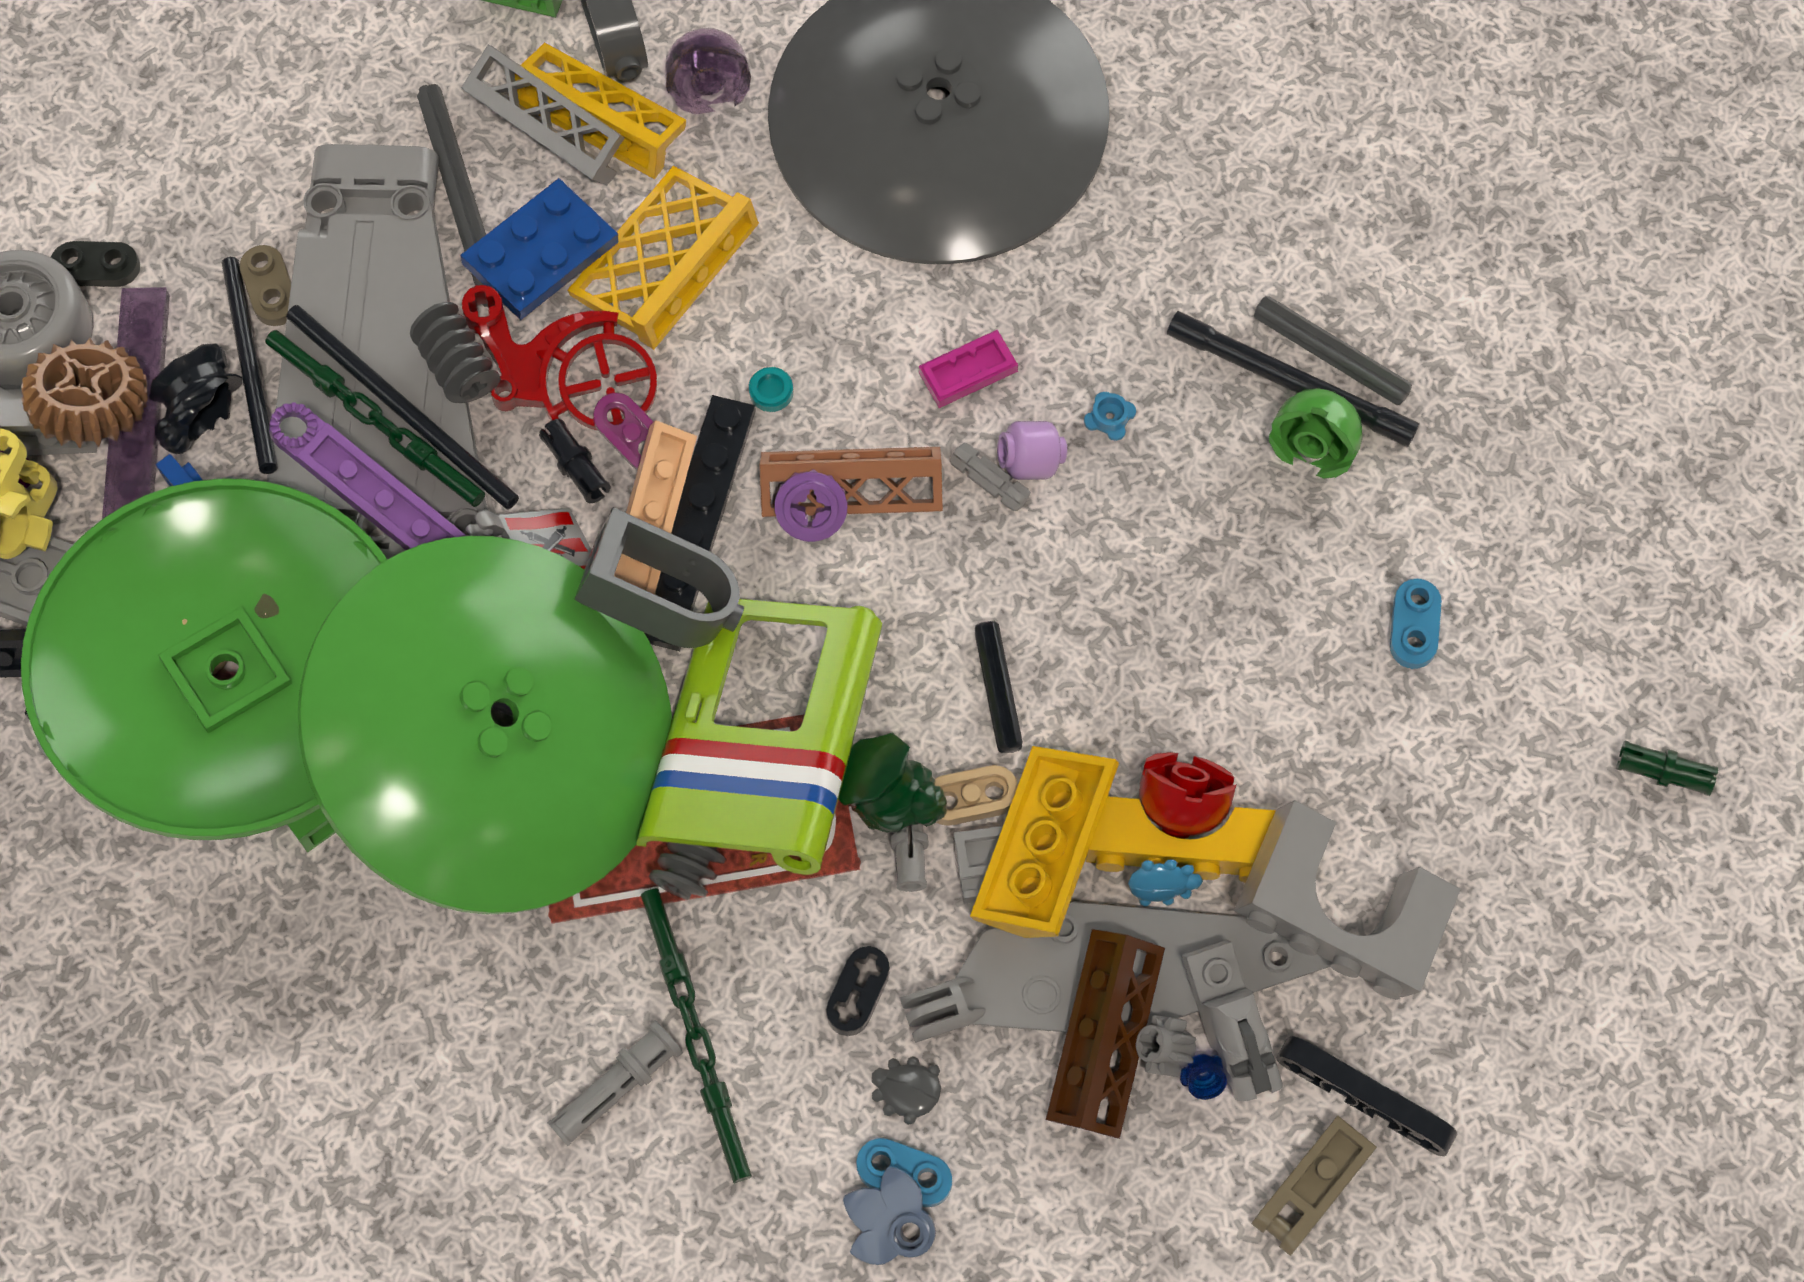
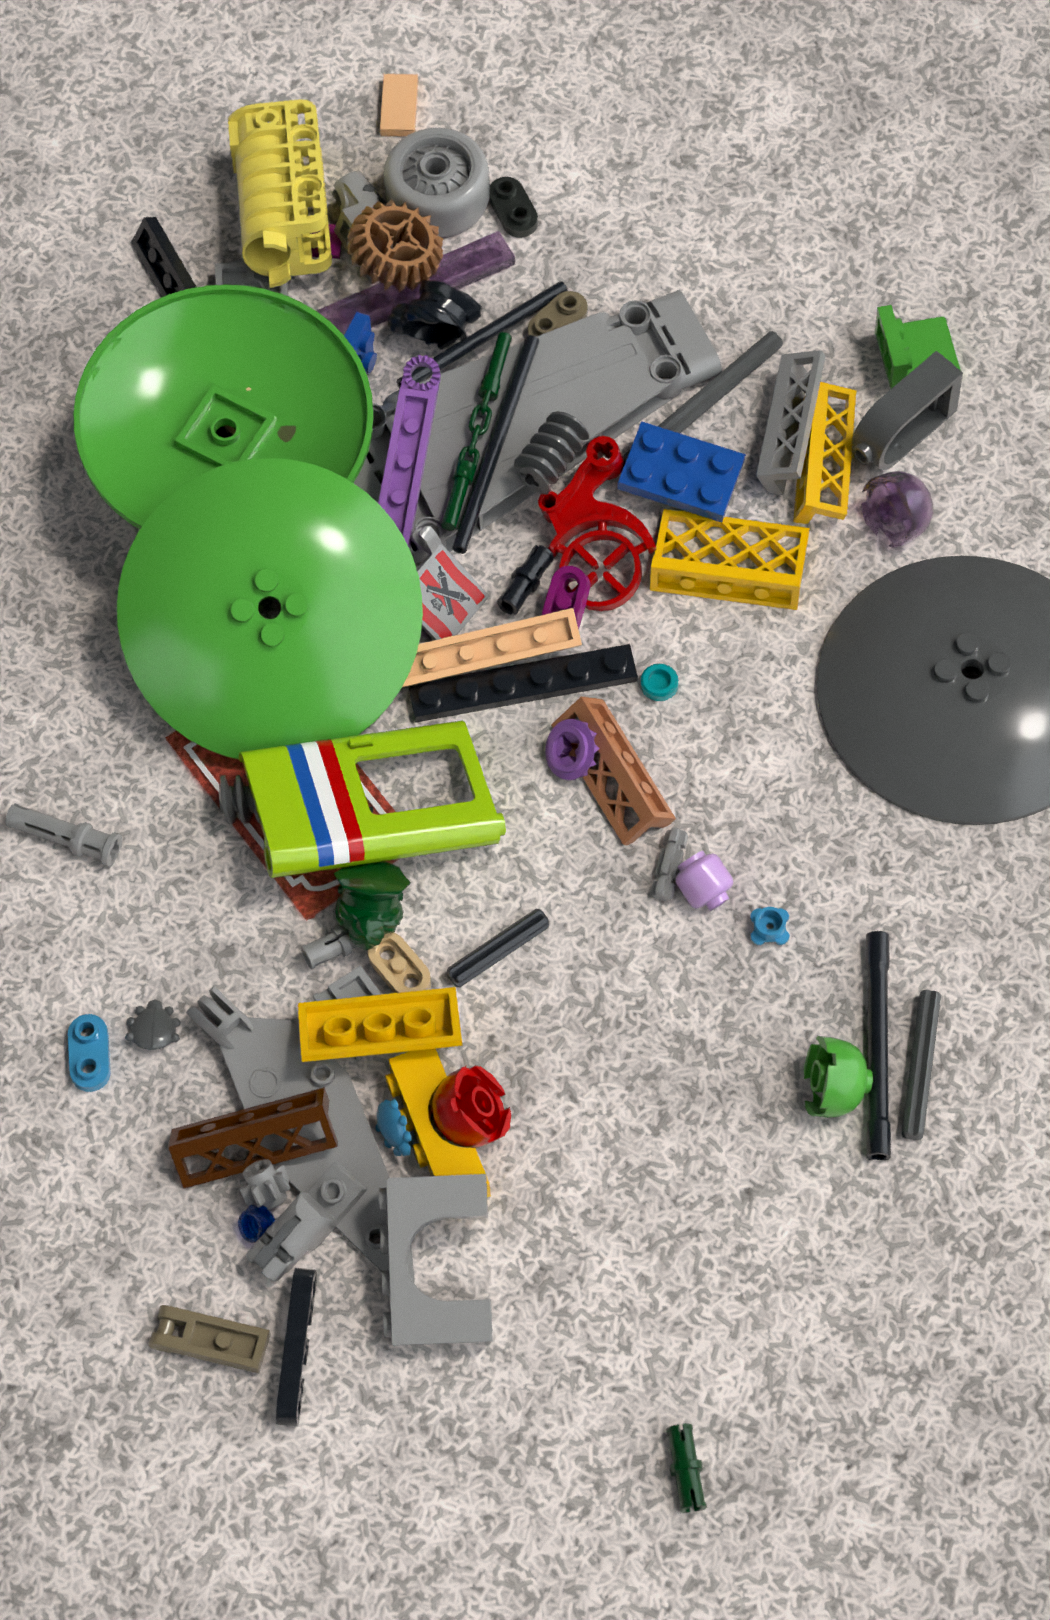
camera: 65 degrees right, 5 degrees down
(670, 555) = (437, 619): dark grey window -> none
(716, 1094) = (87, 902): dark green piece -> none
(847, 986) = (206, 952): black beam -> none
(882, 1216) = (52, 1053): sand blue plate -> none
(968, 368) = (751, 807): dark pink plate -> none
(1415, 621) = (713, 1226): dark azure plate -> none

